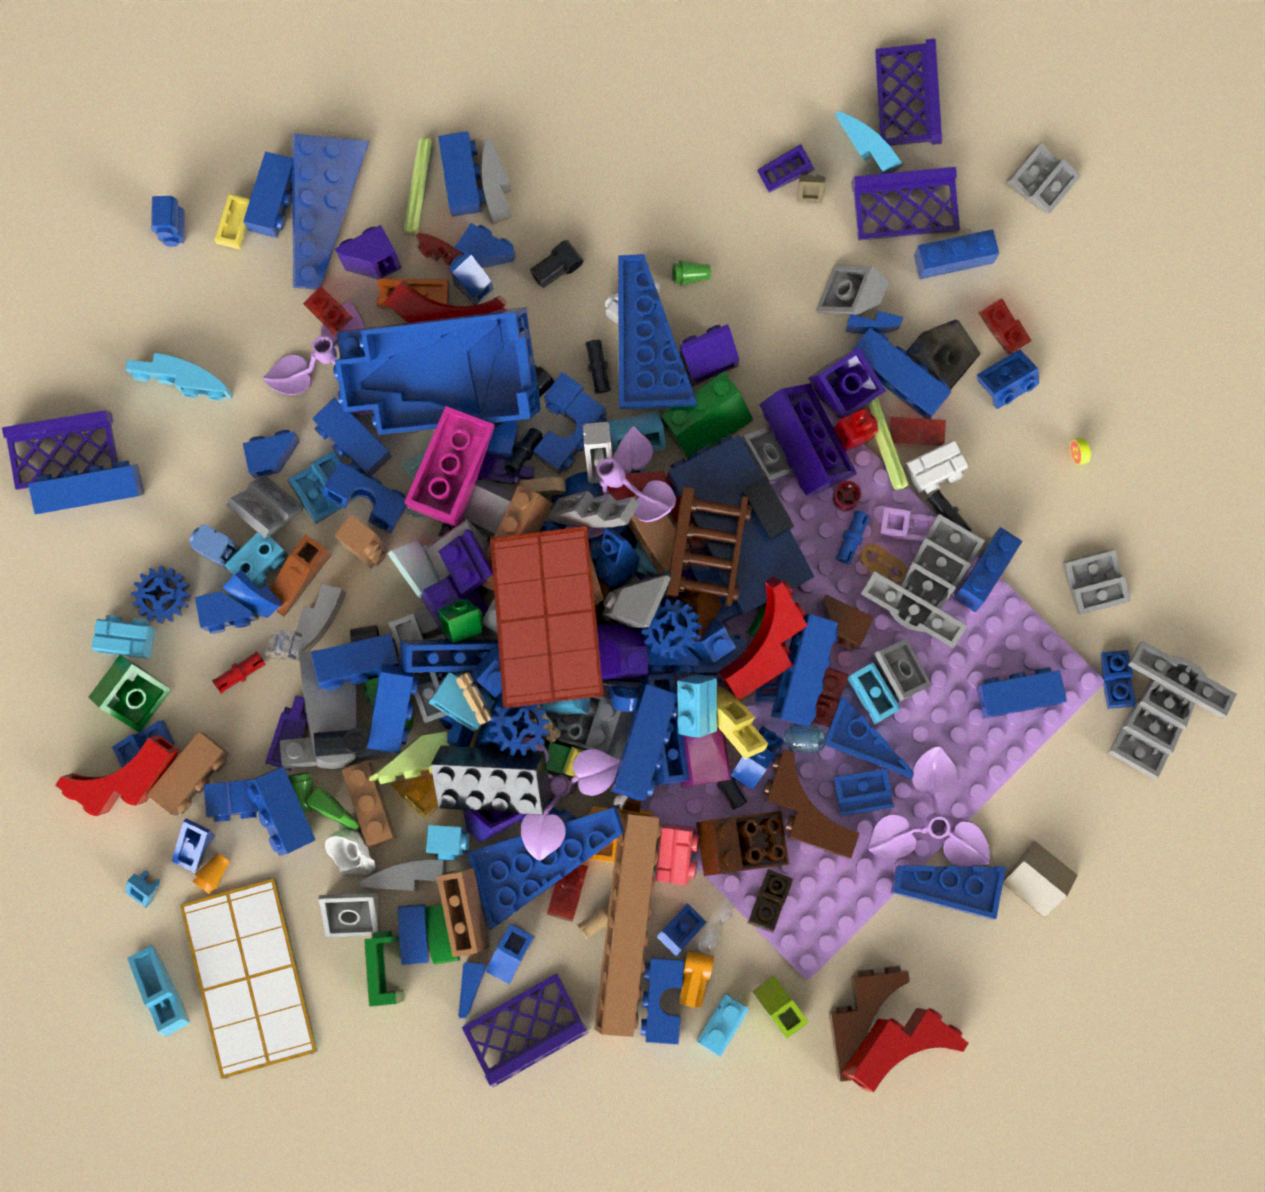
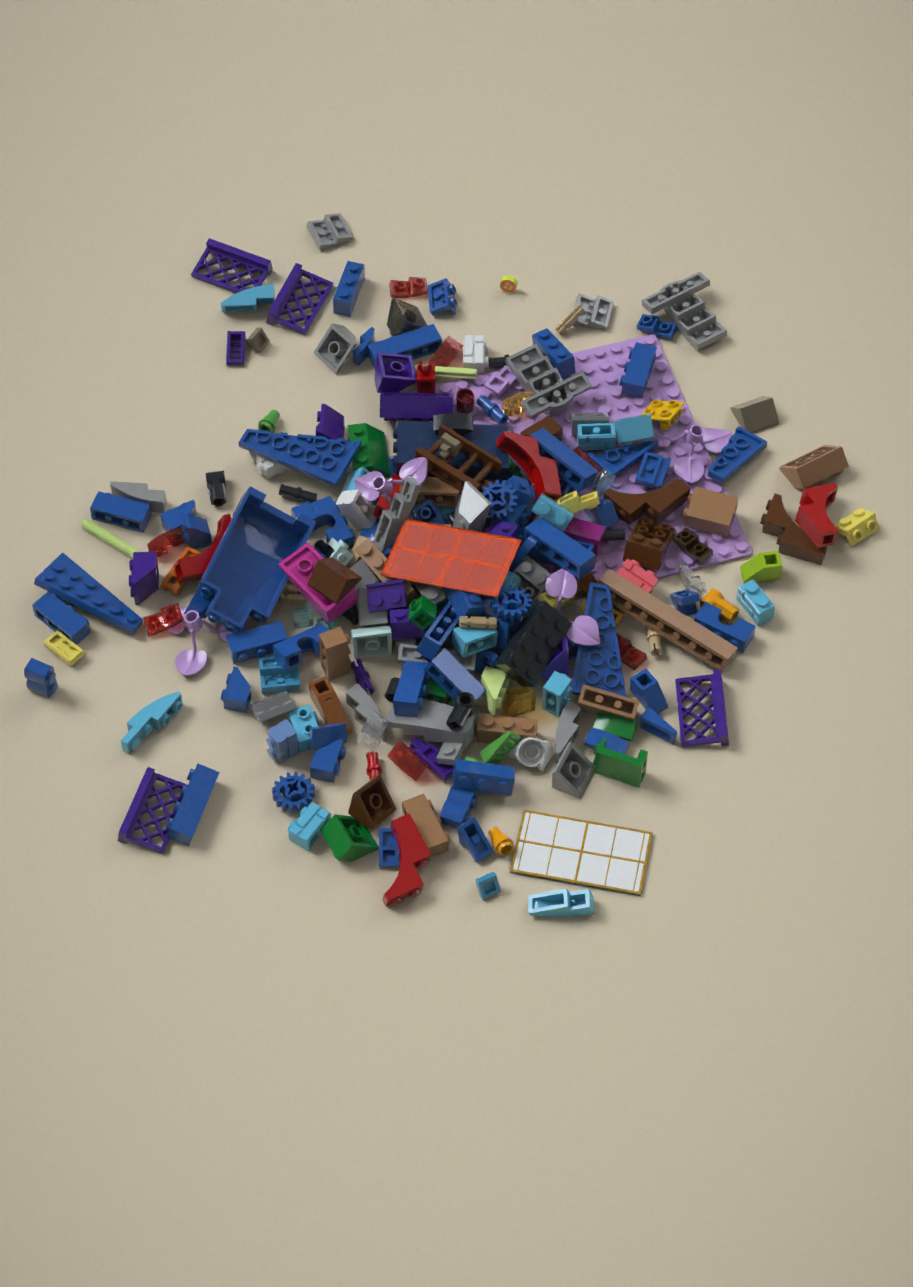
camera: 65 degrees left, 25 degrees down
(182, 698) = (371, 803): none -> reddish brown slope
(270, 696) = (407, 760): none -> clear red slope
(365, 588) = (362, 677): none -> dark purple pin
(451, 487) = (333, 579): none -> reddish brown slope
(523, 468) = (341, 552): none -> light aqua bracket
(712, 525) = (449, 446): none -> dark tan tile
(835, 899) = (710, 511): none -> medium nougat brick
(911, 738) = (634, 429): none -> medium azure brick
(922, 1100) = (857, 526): none -> light yellow bracket
(963, 758) = (665, 412): none -> yellow hinge
(990, 1000) = (815, 466): none -> medium nougat slope
(1061, 561) = (570, 319): none -> tan axle

